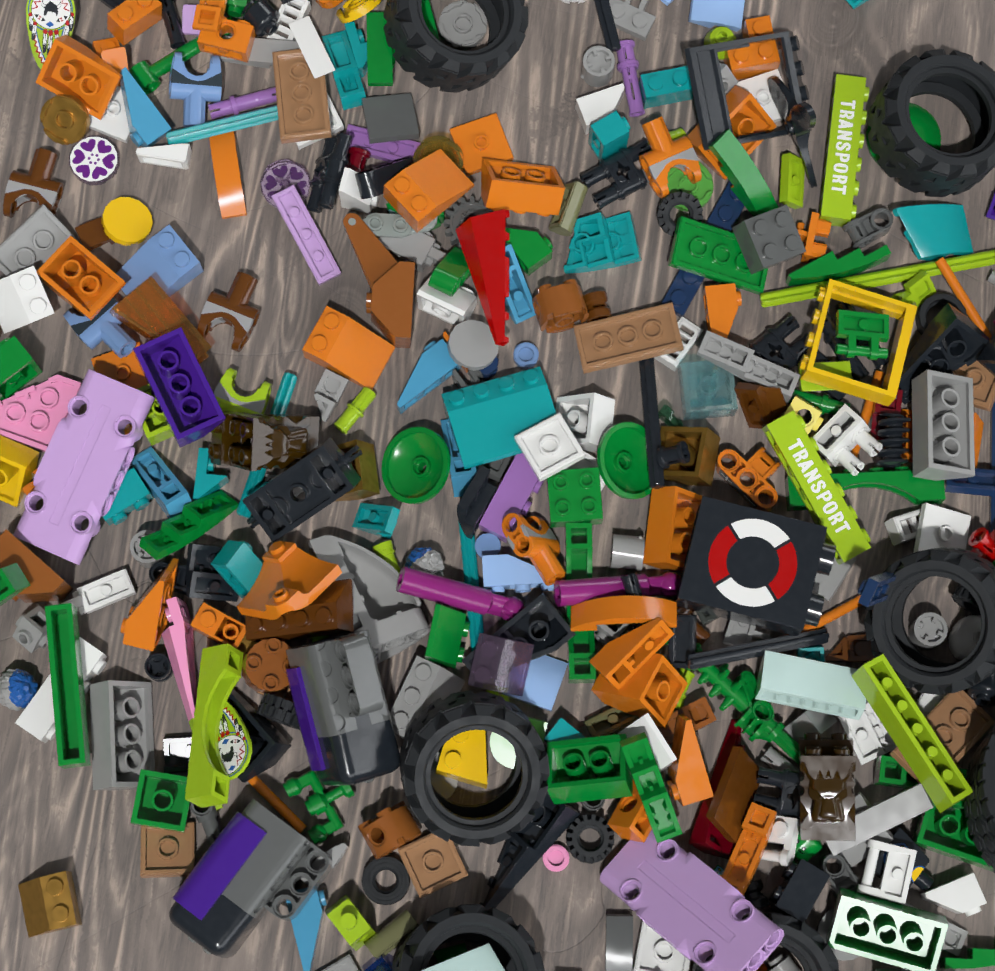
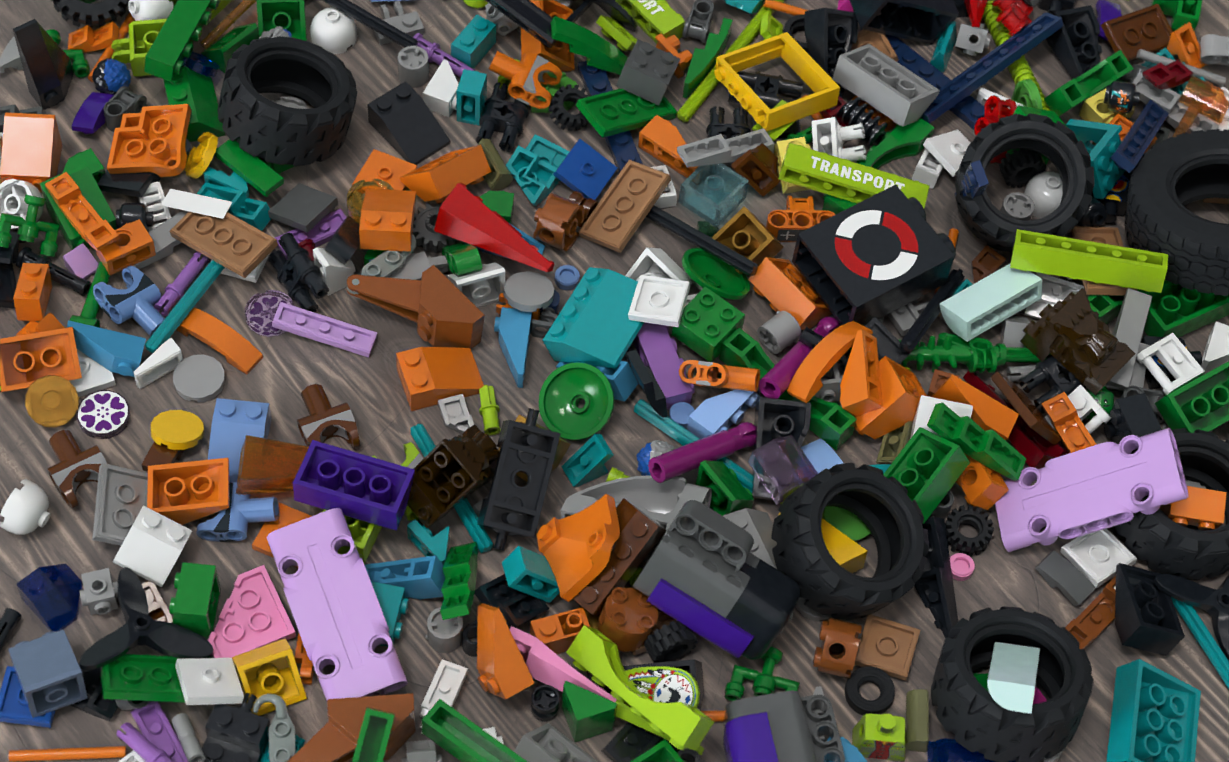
camera: 50 degrees left, 20 degrees down
(168, 702) = (587, 712): none -> green slope
(184, 192) = (199, 378): none -> light grey tile
(542, 115) = (407, 124): none -> black slope
(631, 279) = (585, 170): none -> blue plate
(673, 454) = (742, 240): black bush -> none
(862, 326) = (772, 63): green plate -> none

